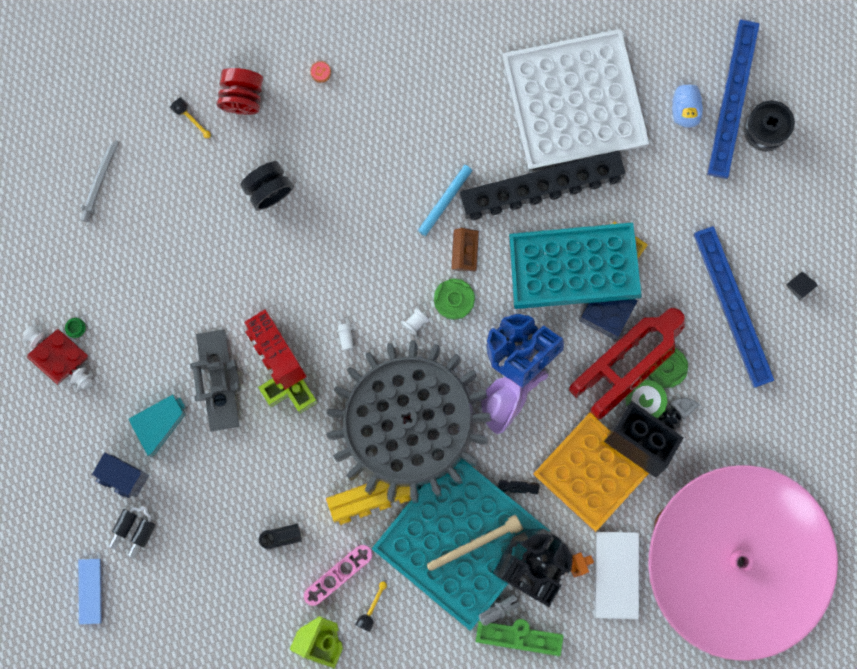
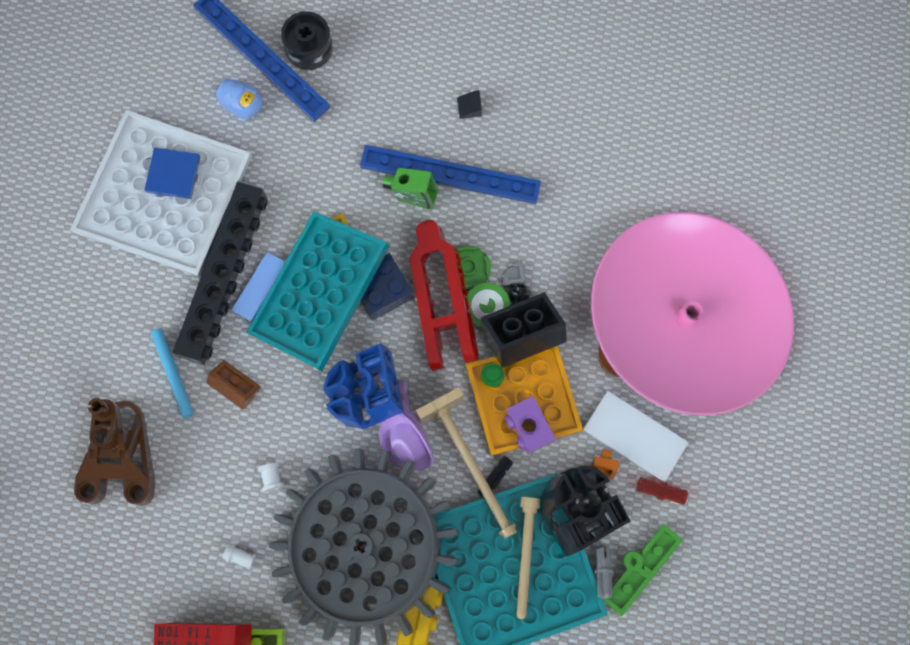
camera: 65 degrees left, 5 degrees down
(266, 185) = (30, 542): black wheel -> none
(339, 193) = (107, 417): none -> reddish brown connector
(454, 299) = (273, 425): bright green tile -> none
(542, 414) = (441, 408): none -> tan tile
(549, 219) = (258, 287): none -> light blue tile
(583, 481) = (529, 411): none -> medium lavender brick
(587, 619) = (662, 491): none -> clear red pin
(593, 437) = (492, 375): none -> green plate
(594, 98) = (172, 173): none -> blue tile
(702, 285) = (413, 187): none -> bright green torso

